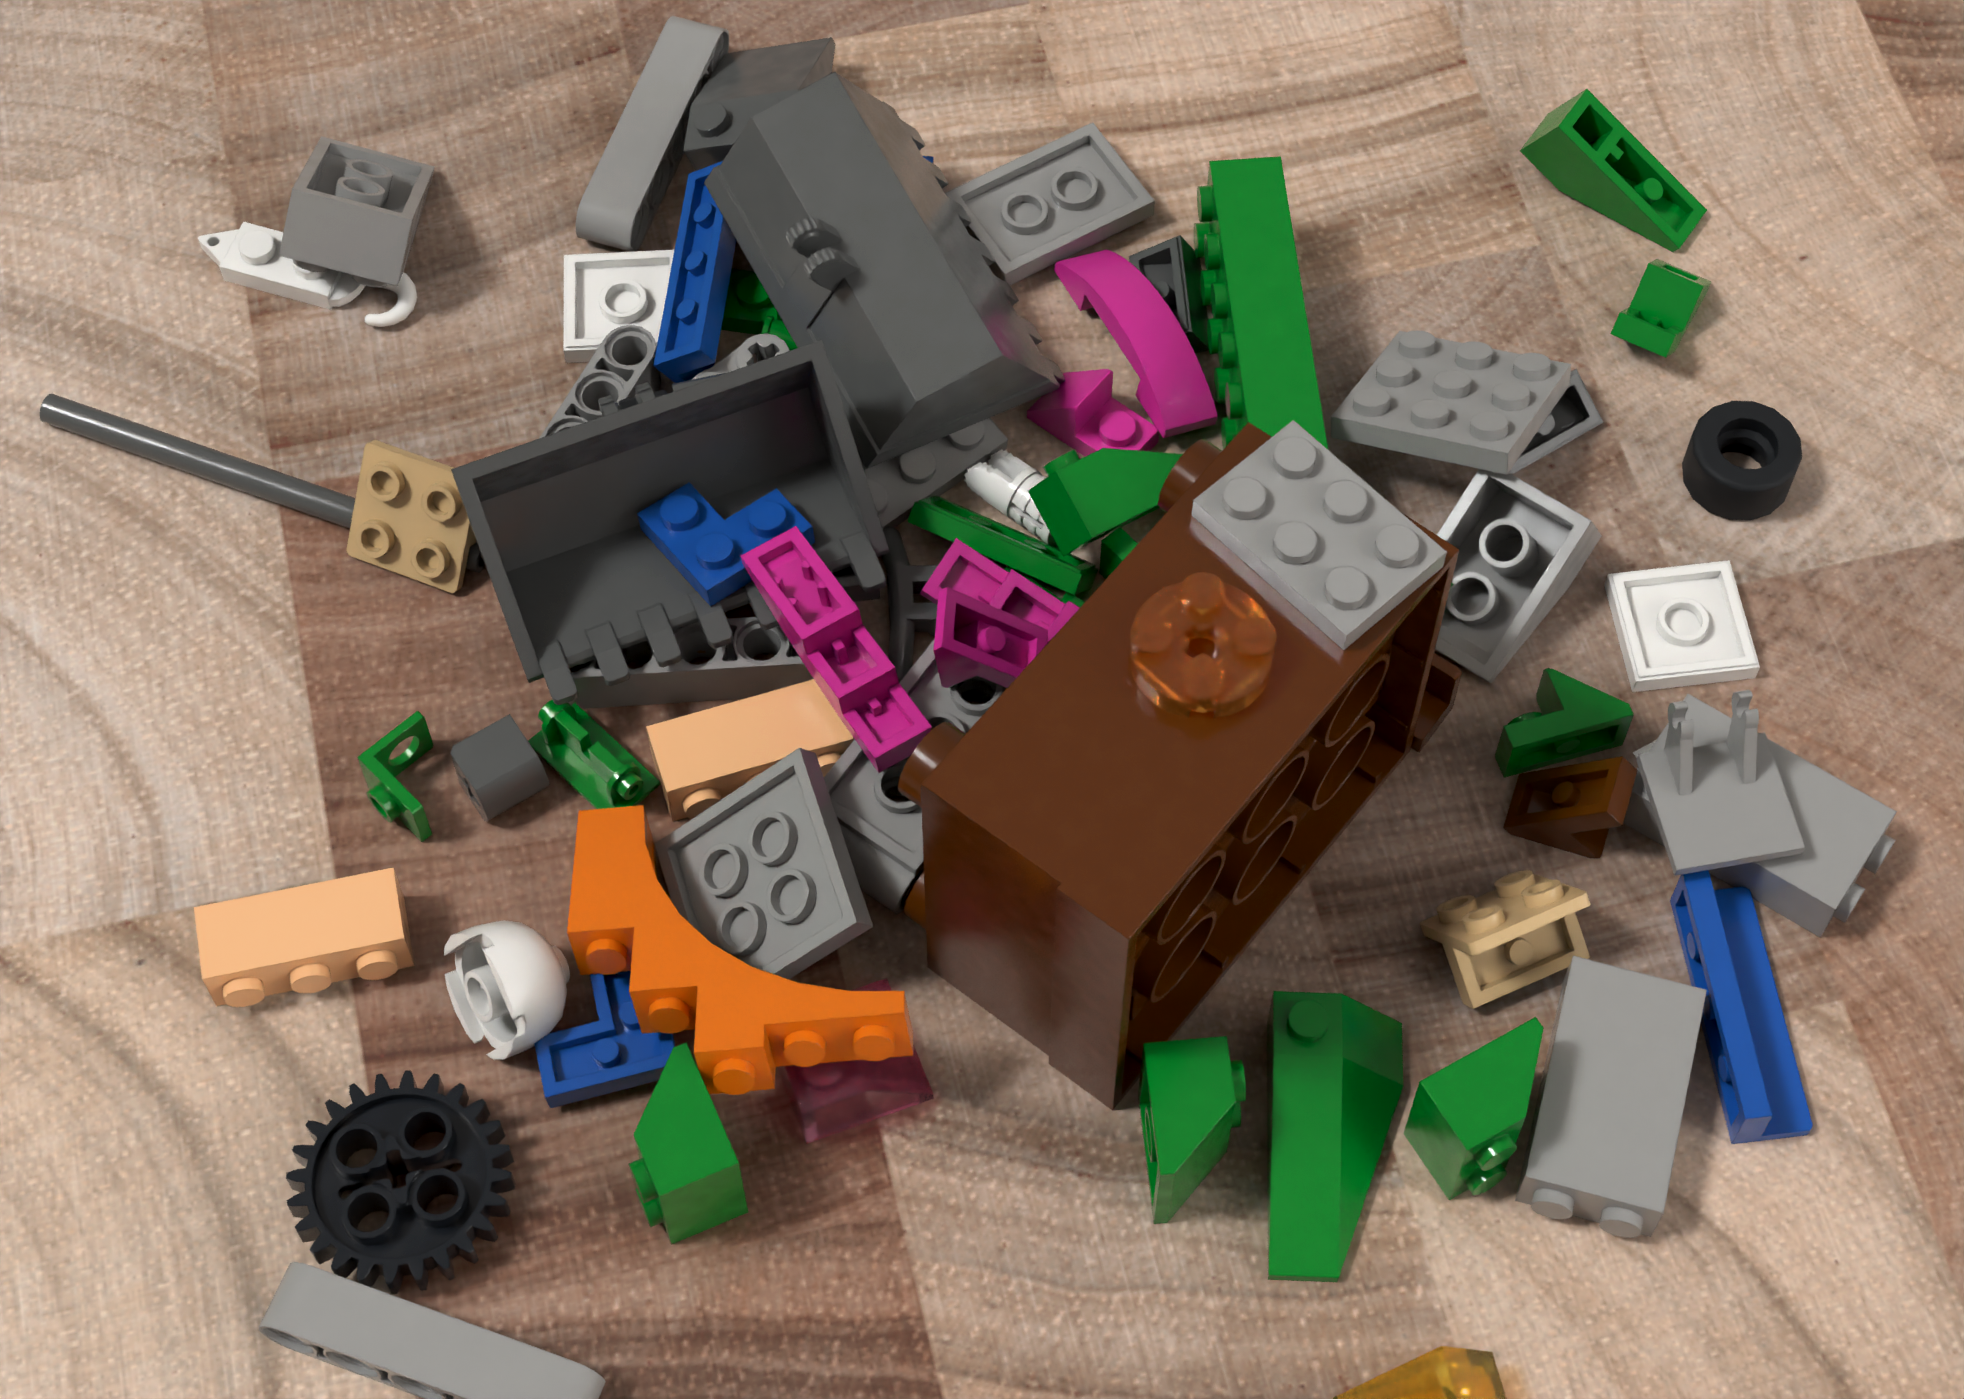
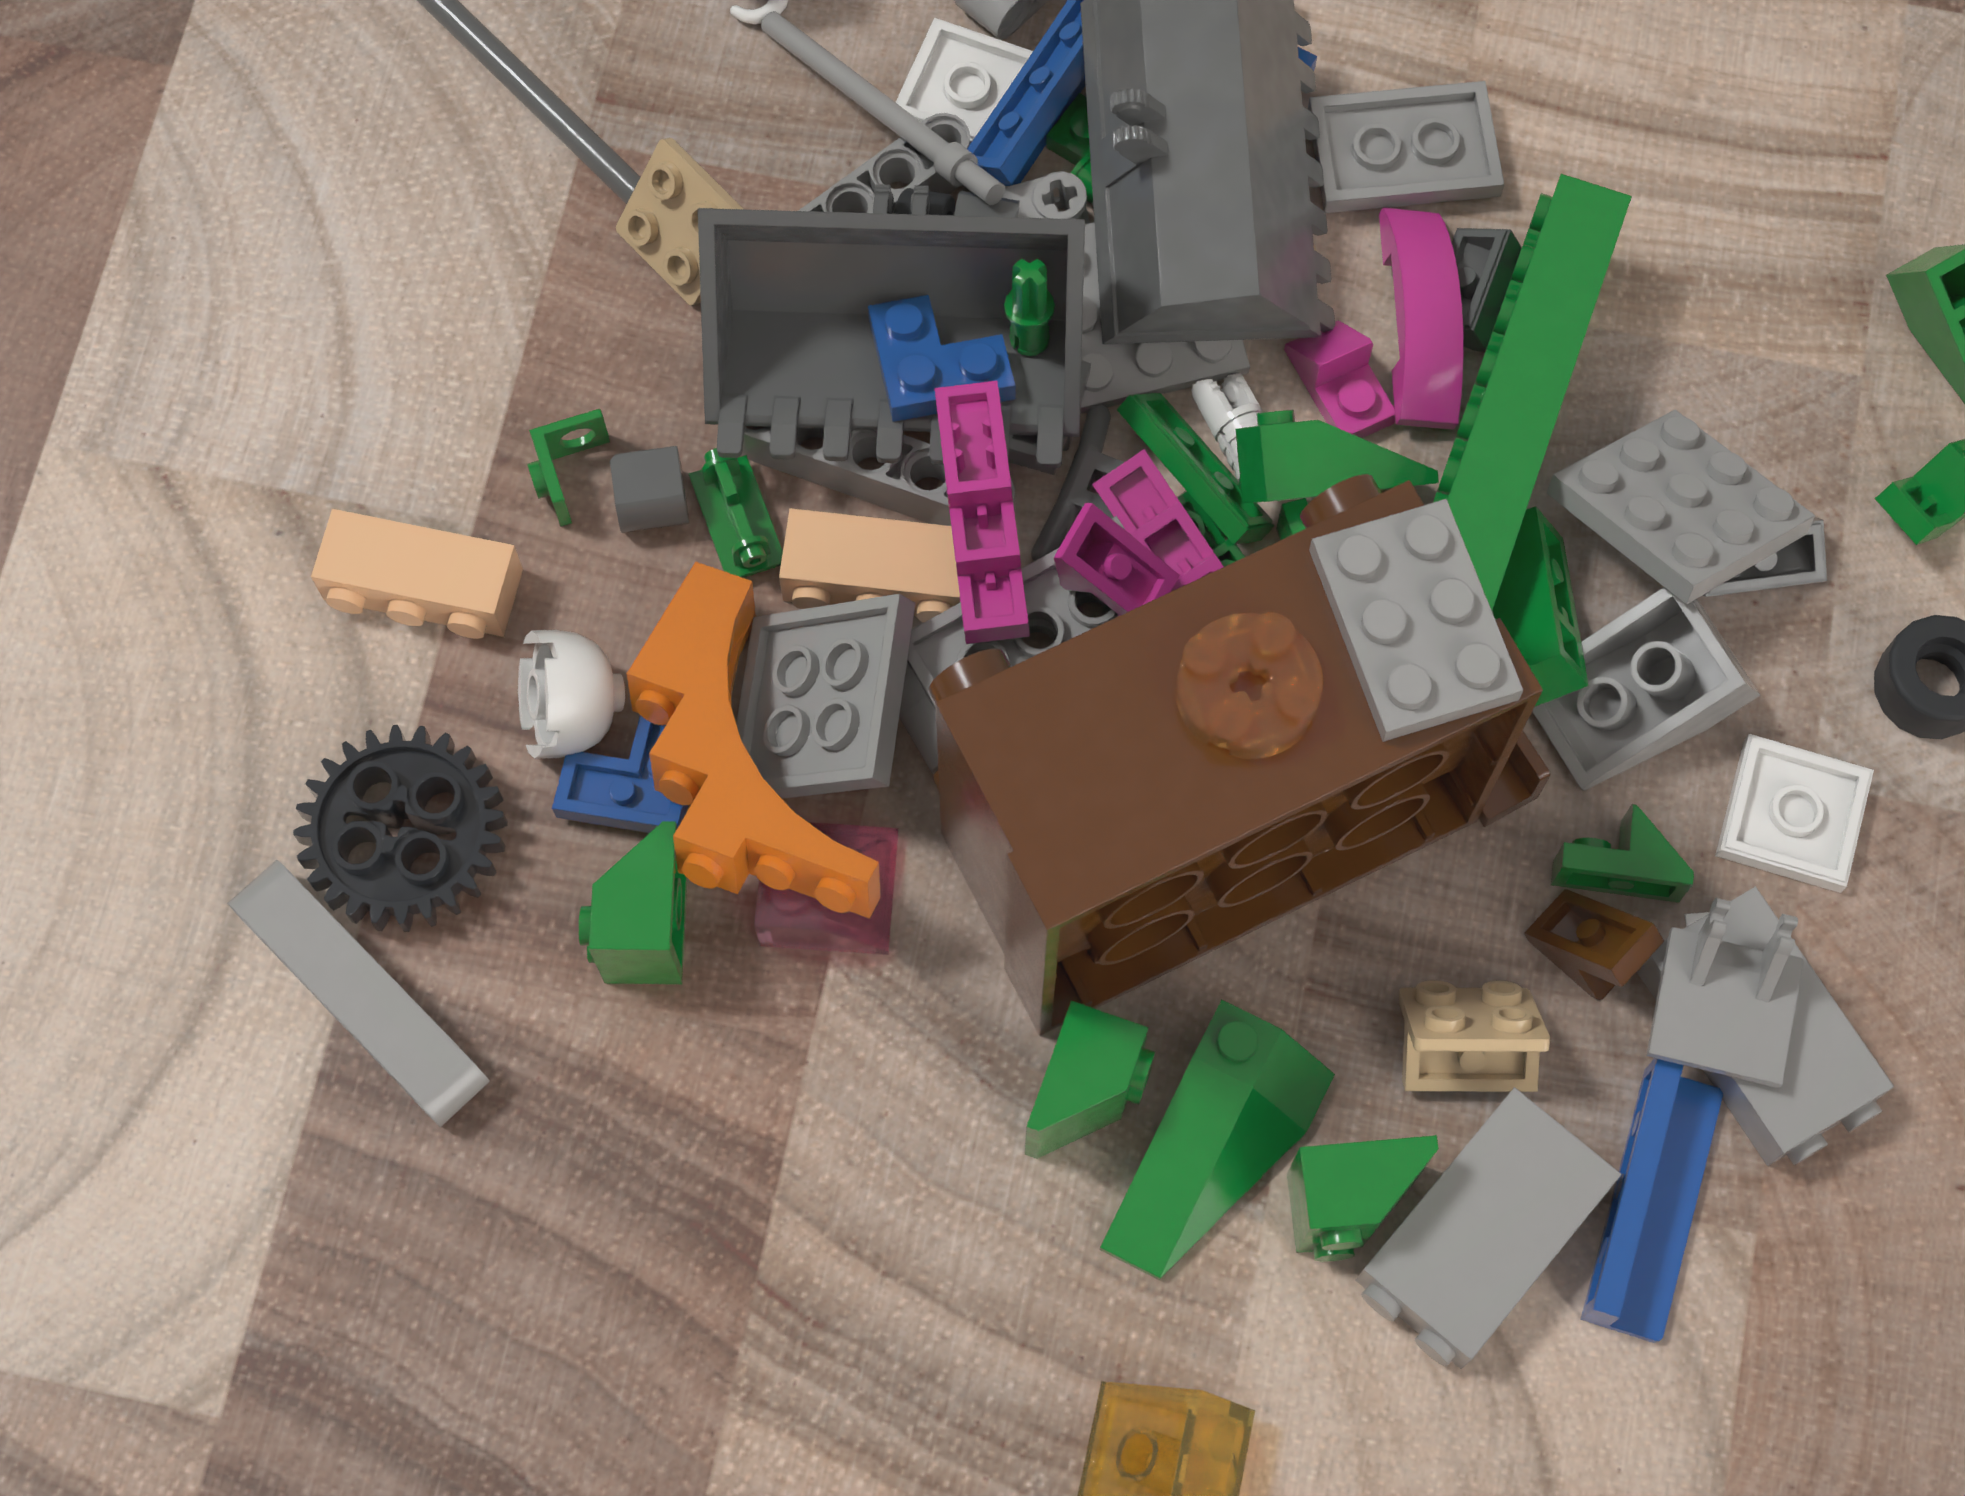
camera: 25 degrees right, 10 degrees up
(651, 359) = (949, 159): none -> light grey bar
(794, 450) = (1029, 307): none -> green axle

